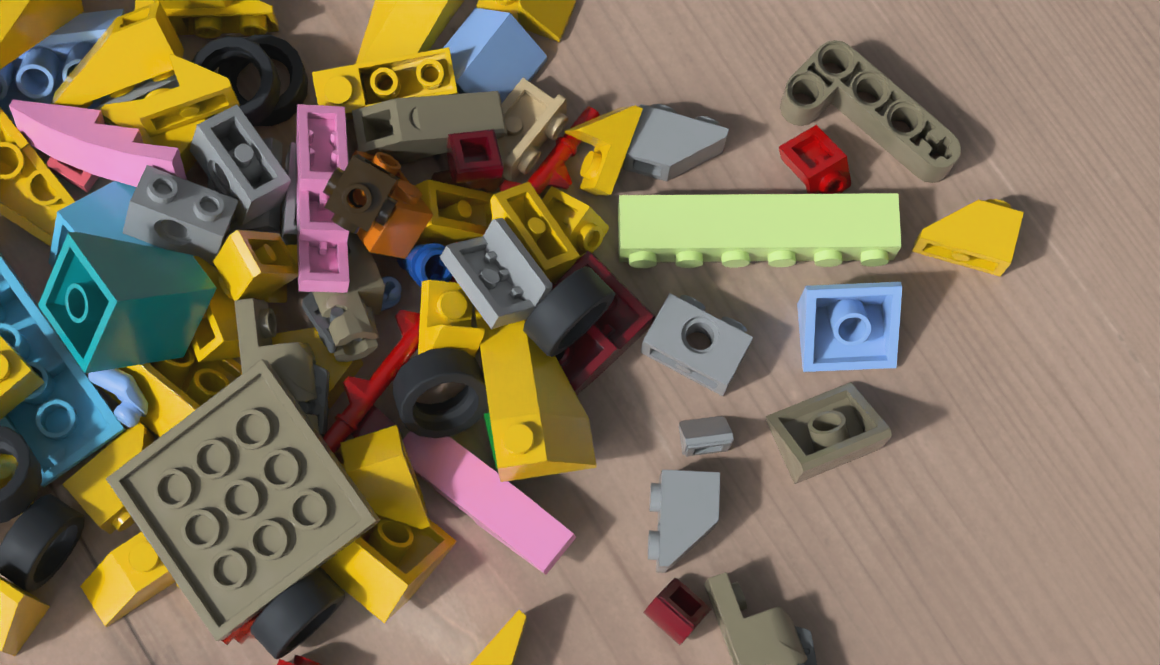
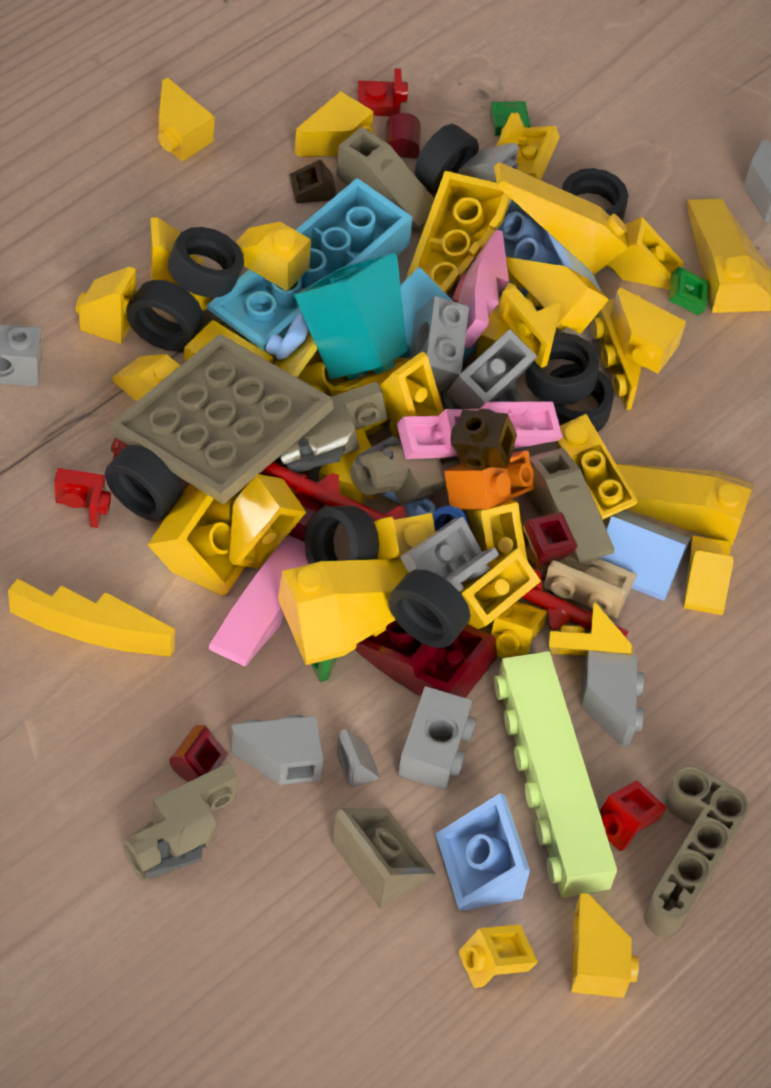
camera: 75 degrees right, 20 degrees down
(961, 339) = (496, 952): none -> yellow bracket

